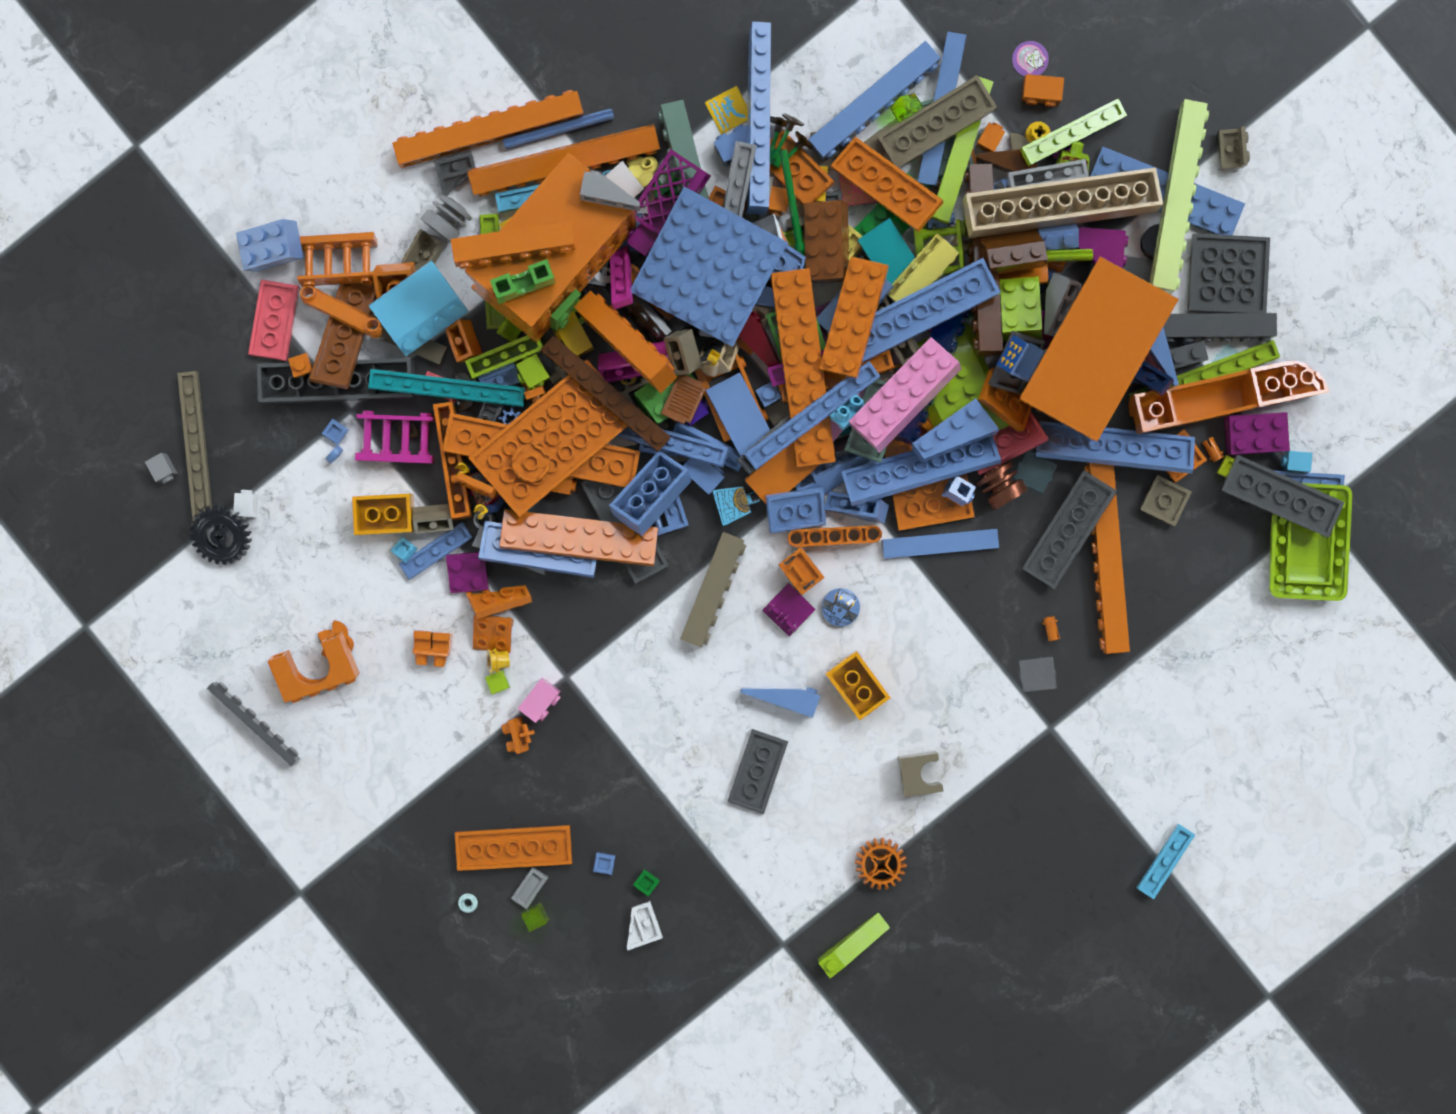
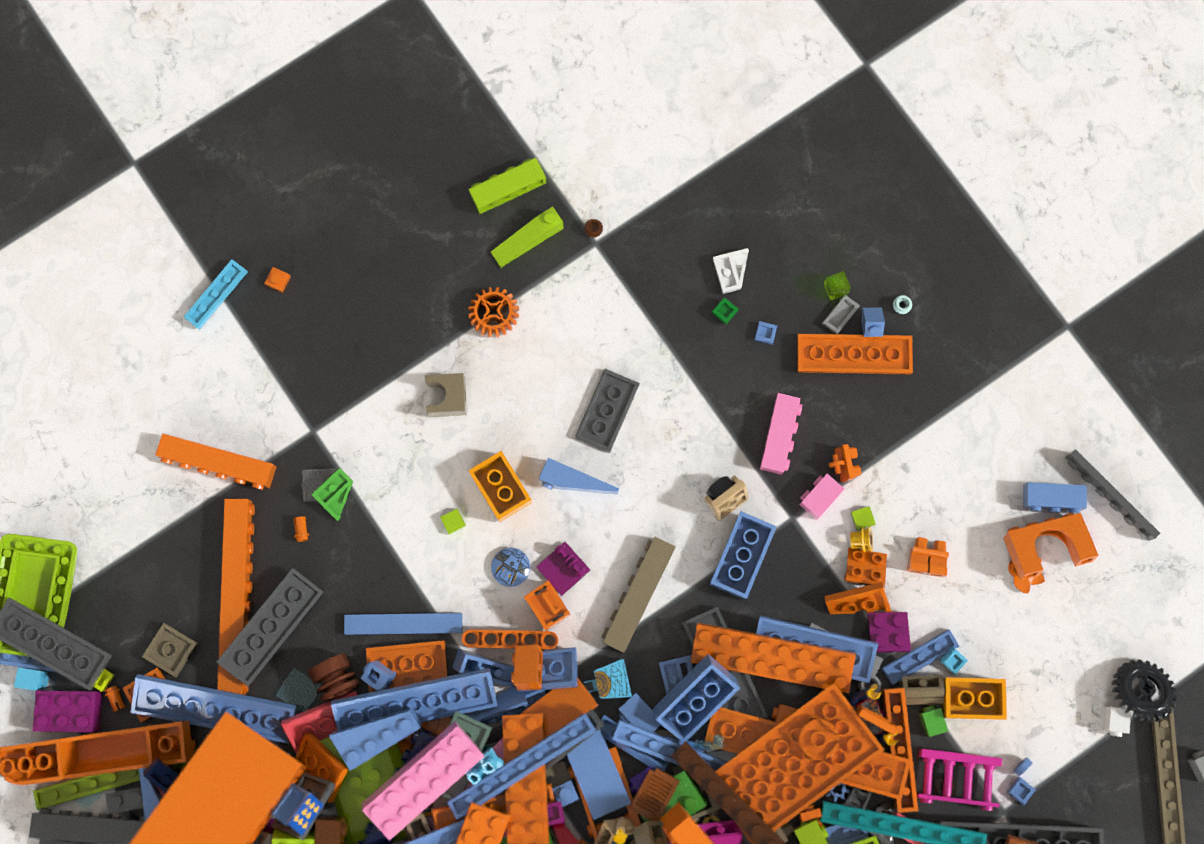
camera: 175 degrees left, 10 degrees down
(310, 716) = (1054, 497): none -> medium blue brick
(421, 490) = (933, 721): none -> bright green brick
(497, 881) = (873, 322): none -> medium blue brick
(583, 760) = (780, 434): none -> bright pink brick
(613, 635) = (742, 555): none -> medium blue brick
(634, 449) = (710, 746): none -> clear light blue arm
(634, 692) = (726, 496): none -> tan piece
(786, 960) = (593, 228): none -> reddish brown plate
(815, 509) = (527, 667): none -> orange brick
(878, 999) = (507, 185): none -> lime brick
(901, 647) = (453, 521): none -> lime tile
(1022, 667) = (334, 492): none -> bright green wing
(1104, 881) = (277, 279): none -> orange plate
(1143, 689) = (216, 461): none -> orange brick

